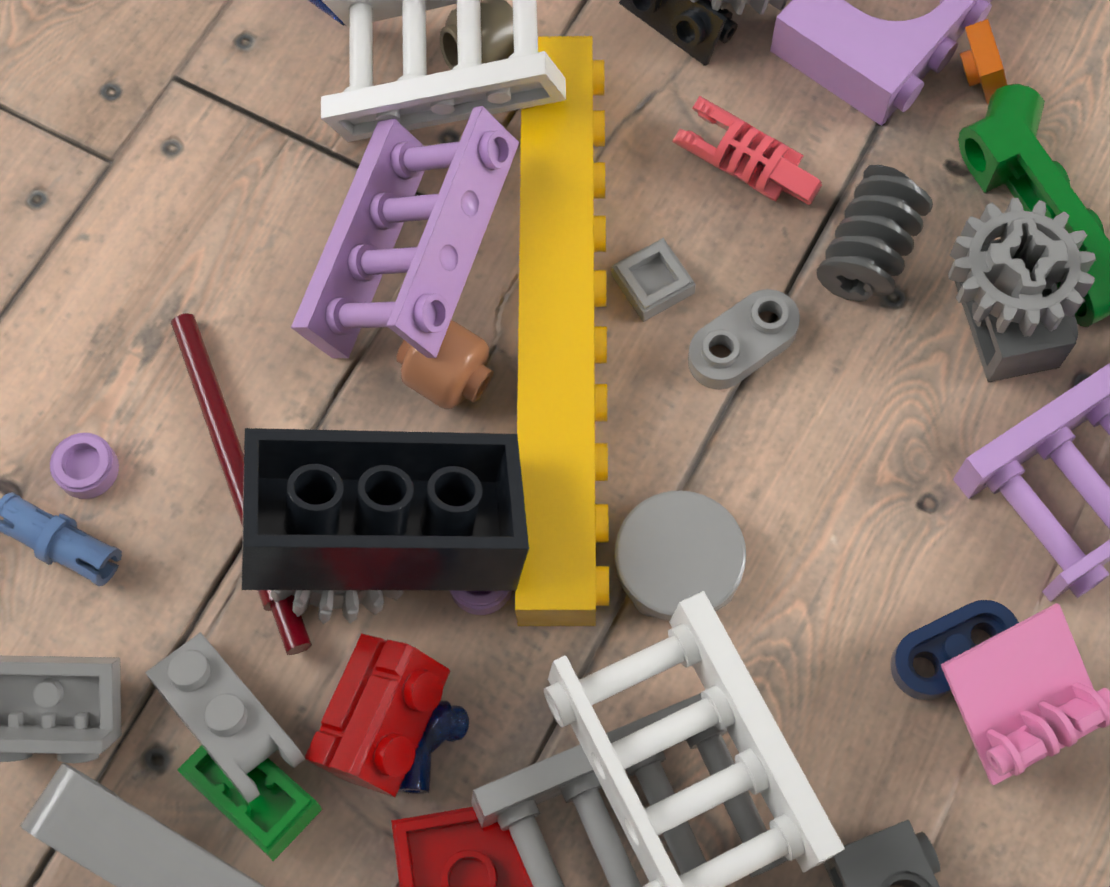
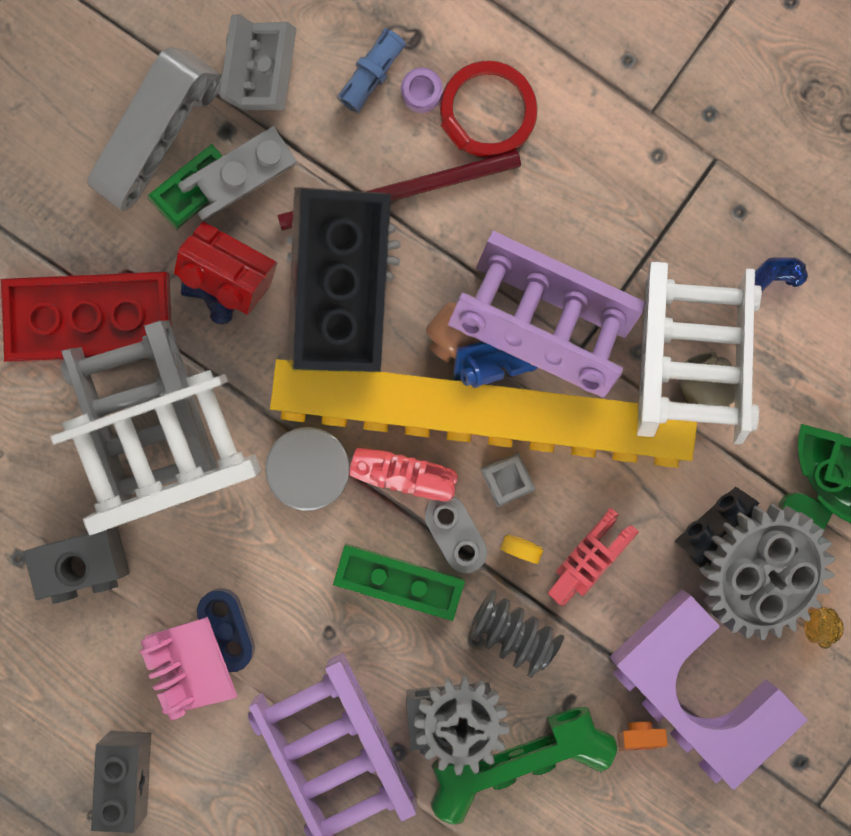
camera: 95 degrees right, 20 degrees up
(145, 409) = (456, 131): none -> red piece
(489, 306) = (482, 364): none -> blue hinge
(667, 415) = (404, 474): none -> coral hinge
(749, 242) = (521, 548): none -> yellow tile
(830, 405) = (399, 582): none -> green plate

